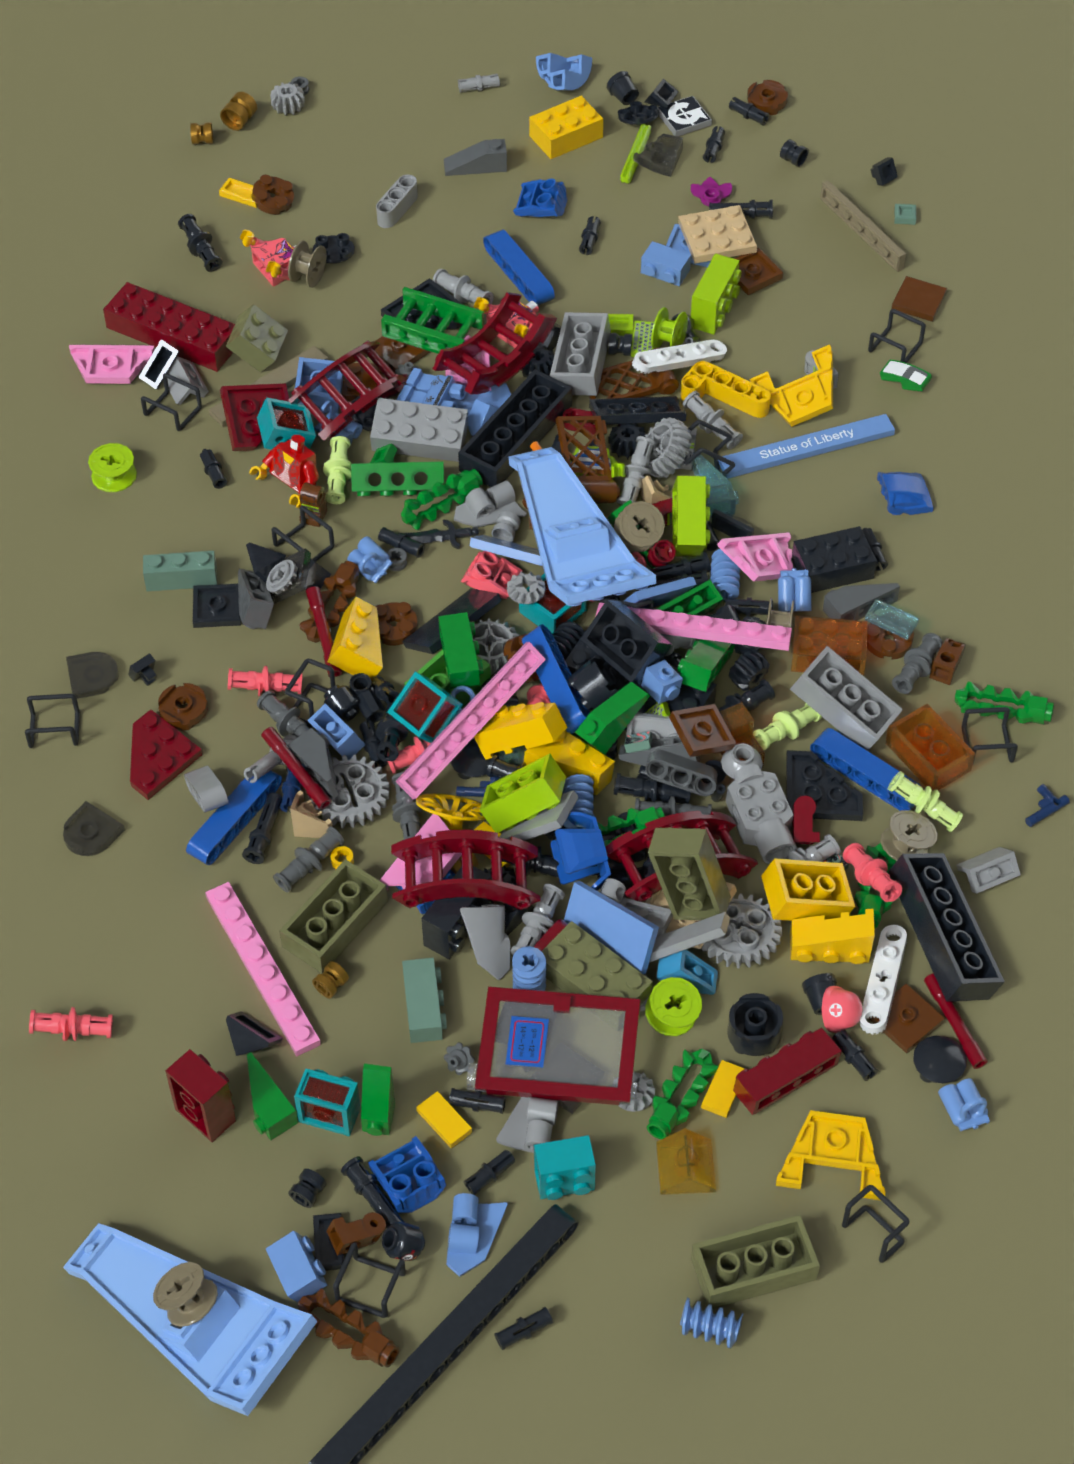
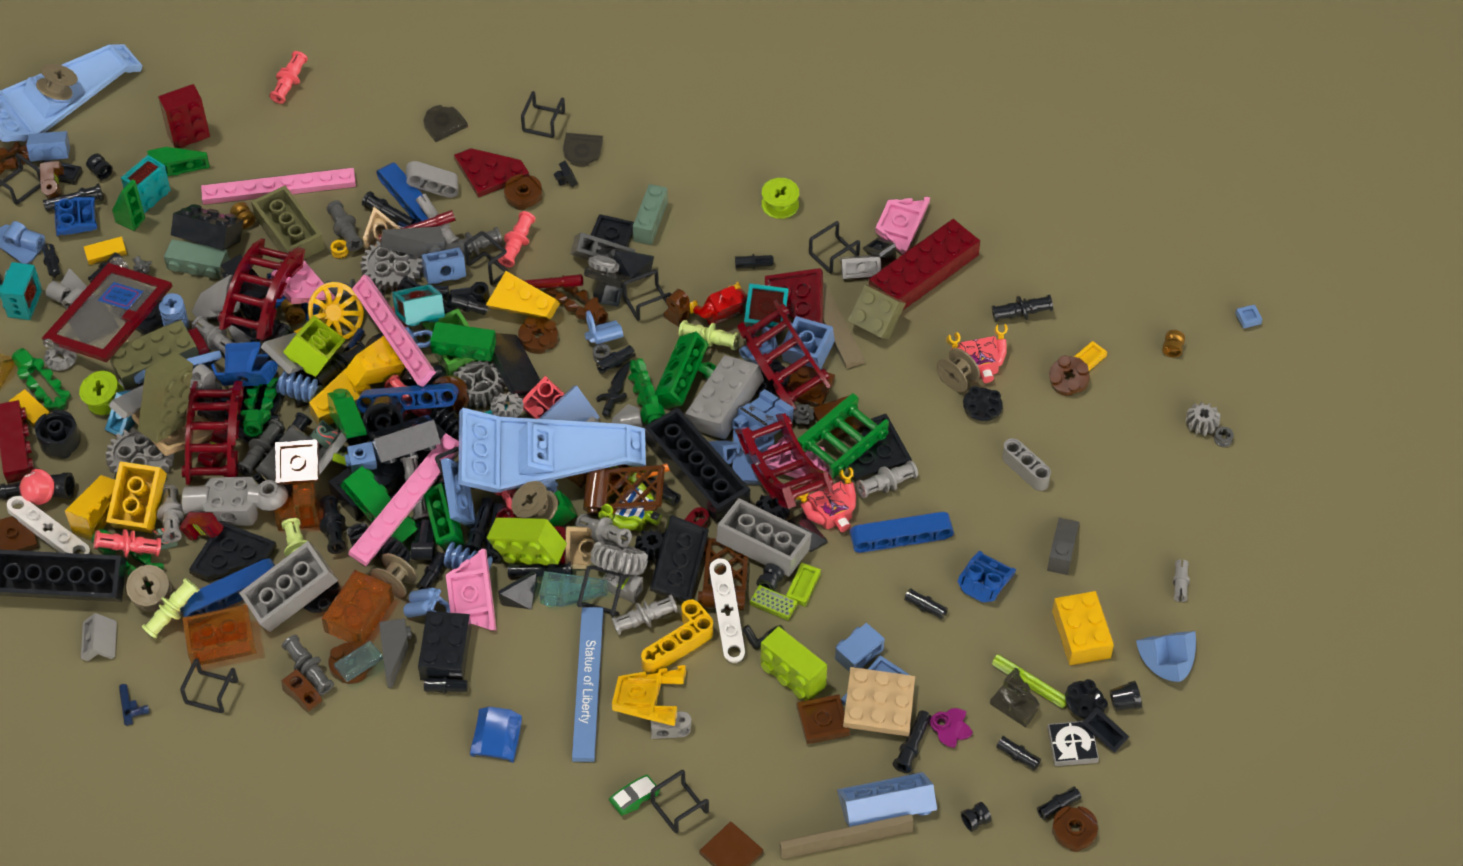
camera: 110 degrees right, 0 degrees up
(144, 92) = (1248, 316): none -> medium blue plate
(238, 111) = (1191, 374): pearl gold wheel -> none
(248, 1034) = (230, 168): black slope -> none
(342, 701) = (472, 275): black head -> none
(376, 997) = (207, 227): none -> black brick
(403, 1241) = (29, 201): black head -> none
(668, 329) = (764, 609): lime piece -> none
(809, 210) = (887, 799): none -> slope
(1035, 709) = (219, 732): green sword -> none

